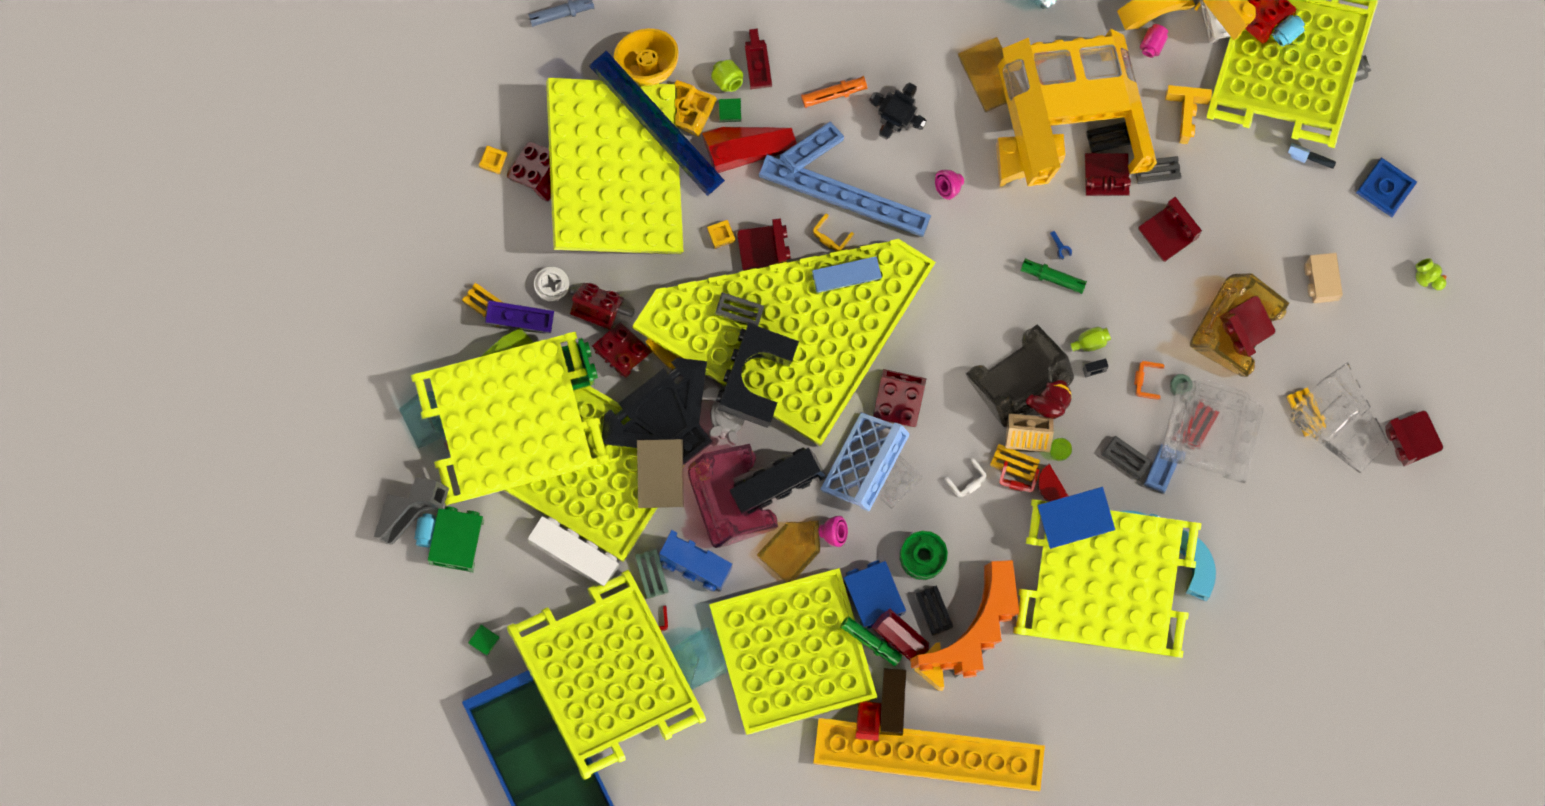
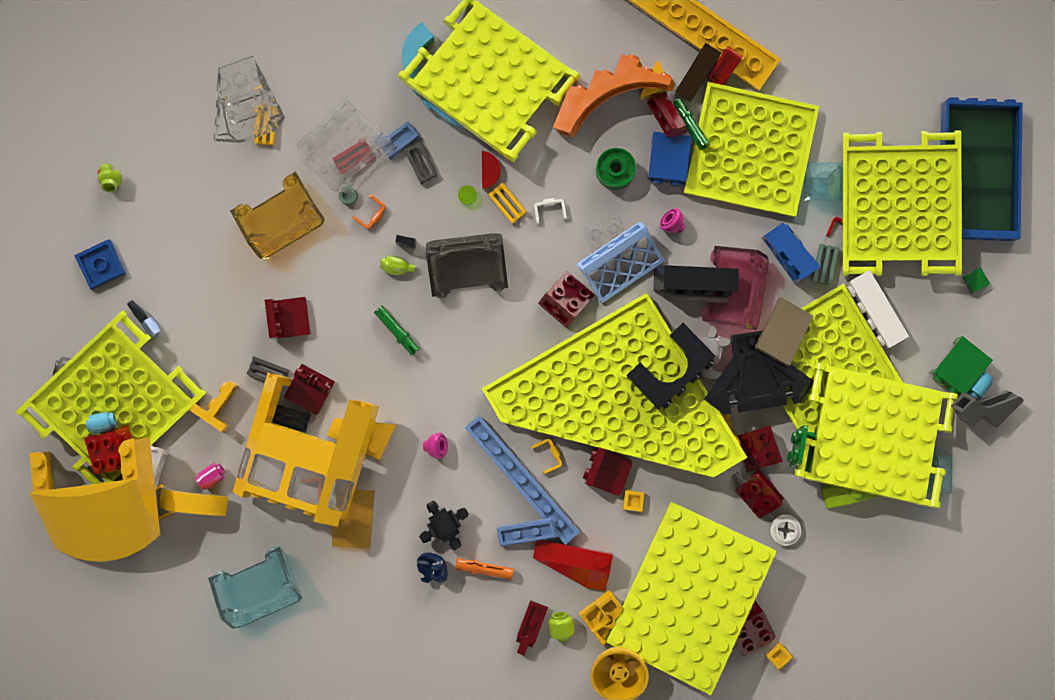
camera: 150 degrees left, 10 degrees up
(471, 293) = (850, 555): yellow tile -> none
(519, 317) = (825, 515): dark purple plate -> none
(656, 123) = (640, 615): clear blue plate -> none
(719, 312) = (651, 432): dark grey tile -> none
(730, 110) = (573, 597): green tile -> none
(792, 549) = (710, 226): clear yellow tile -> none
(846, 274) = (557, 412): medium blue tile -> none
(884, 66) = (432, 567): none -> dark blue hair
(927, 592) = (631, 109): black tile -> none
(1019, 486) = (515, 185): red piece -> none
(1029, 433) = (485, 216): tan brick -> none
(1052, 401) = (455, 229): dark red hair -> none
(1060, 246) = (377, 352): blue hand -> none
(1076, 517) = (490, 127): blue tile -> none
(1247, 325) = (272, 210): dark red bracket -> none
(1323, 278) = (191, 218): tan brick -> none
(1413, 437) = (197, 61): dark red bracket -> none

